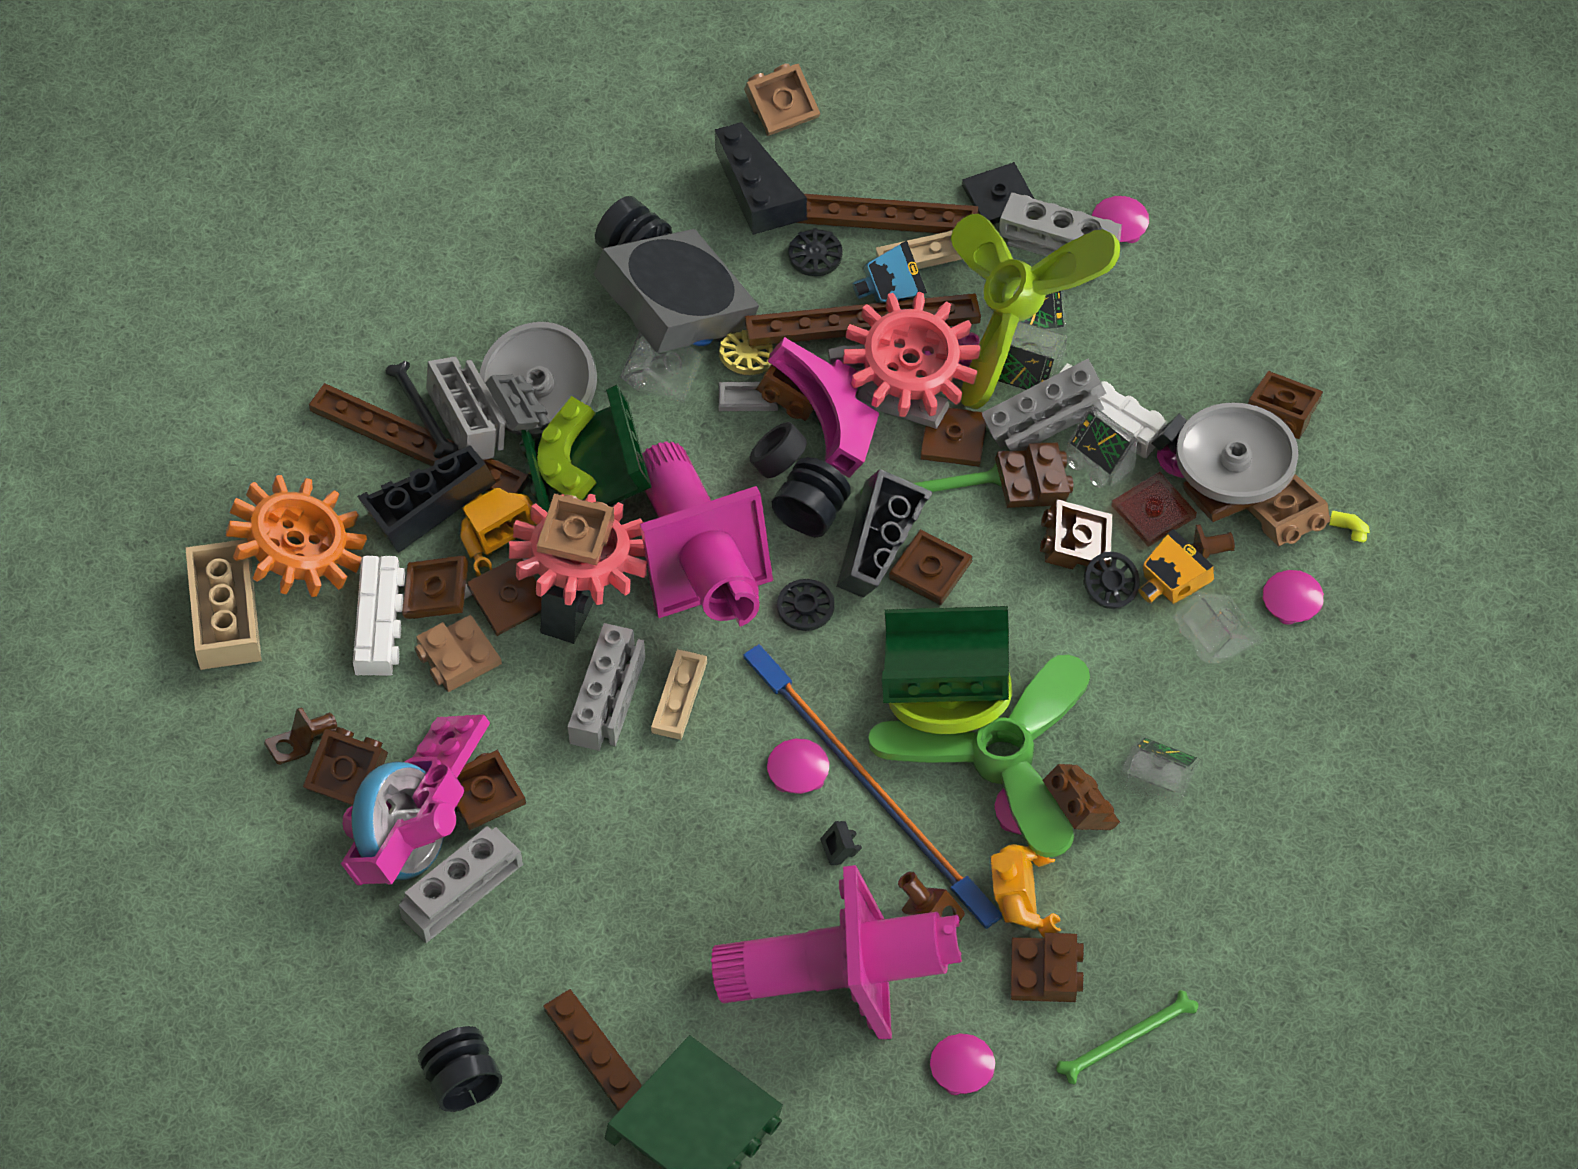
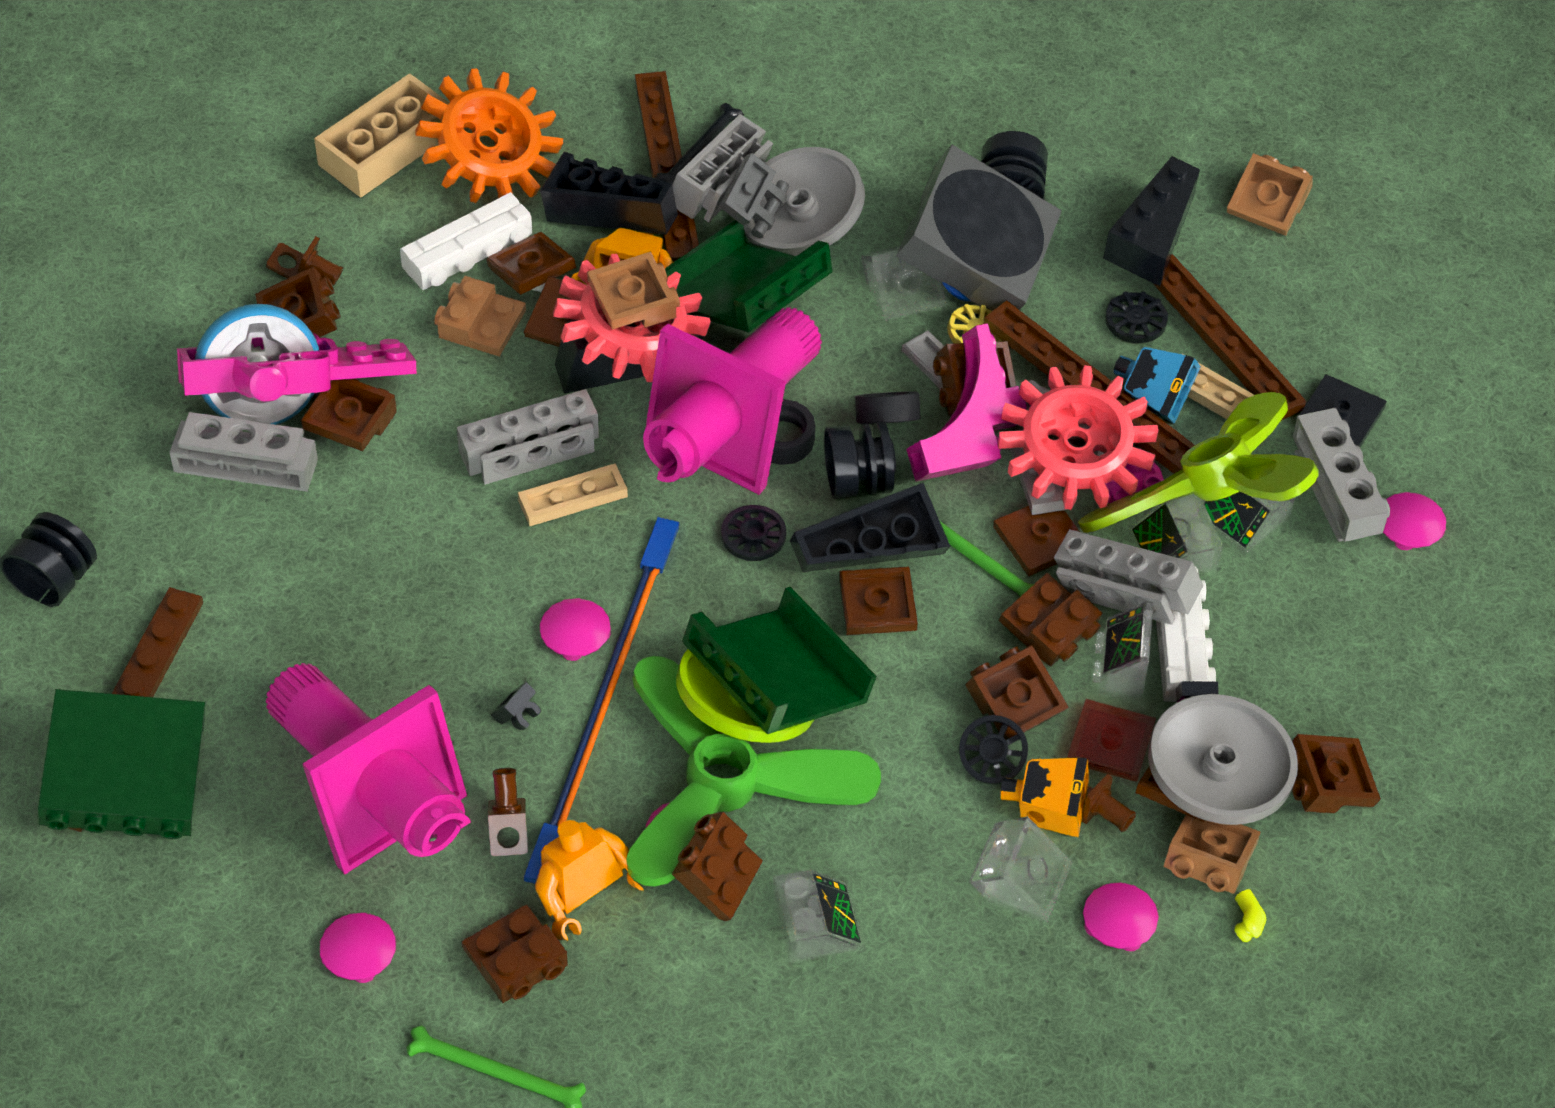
camera: 50 degrees right, 5 degrees down
(555, 450) = (718, 266): lime plate -> none

